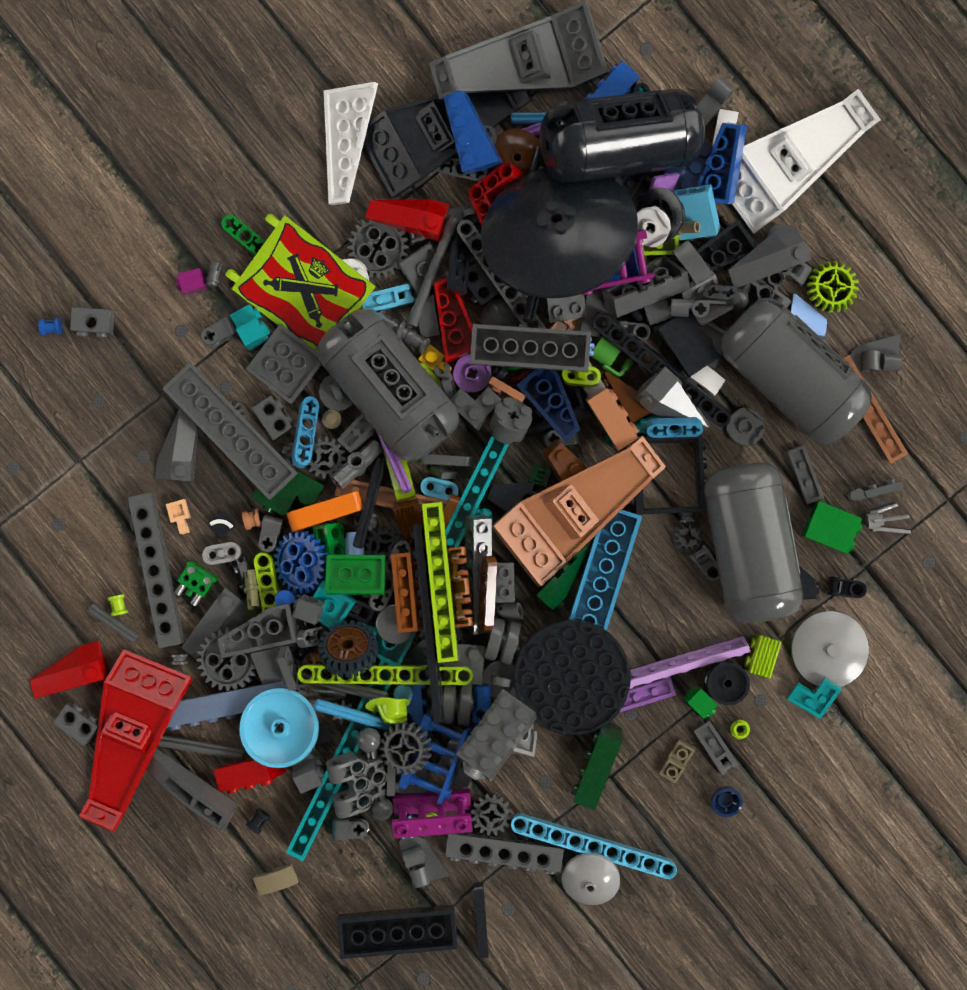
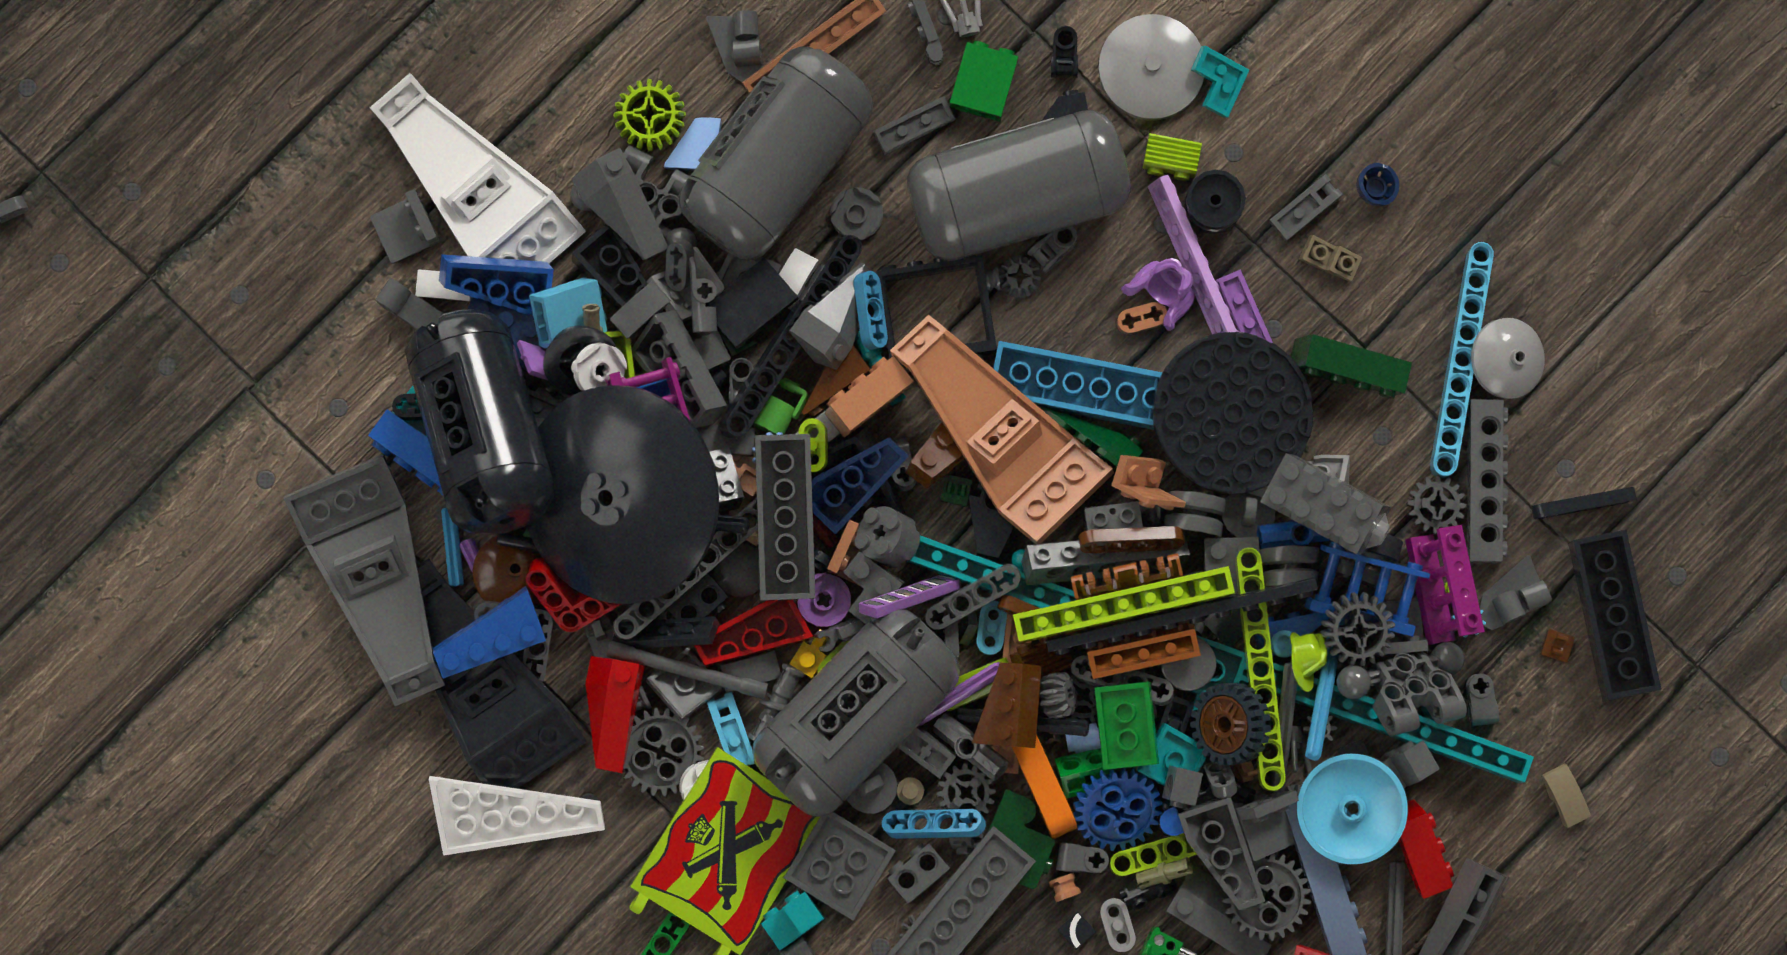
camera: 90 degrees left, 5 degrees down
(258, 820) = (1486, 829): black bush -> none
(377, 494) = (1011, 707): none -> reddish brown wedge
(382, 887) = (1557, 646): none -> reddish brown tile
(383, 528) = (1057, 695): none -> dark grey gear
(457, 478) = (971, 593): none -> dark grey beam
(465, 431) = (909, 596): none -> medium lavender tile
(530, 604) = (1140, 480): none -> nougat bracket
(652, 619) = (1141, 311): none -> nougat beam
(670, 641) = (1168, 285): none -> medium lavender hair
(700, 702) = (1246, 234): green brick -> none
(746, 729) = (1282, 171): lime plate -> none
(769, 106) = (405, 228): none -> dark grey bracket

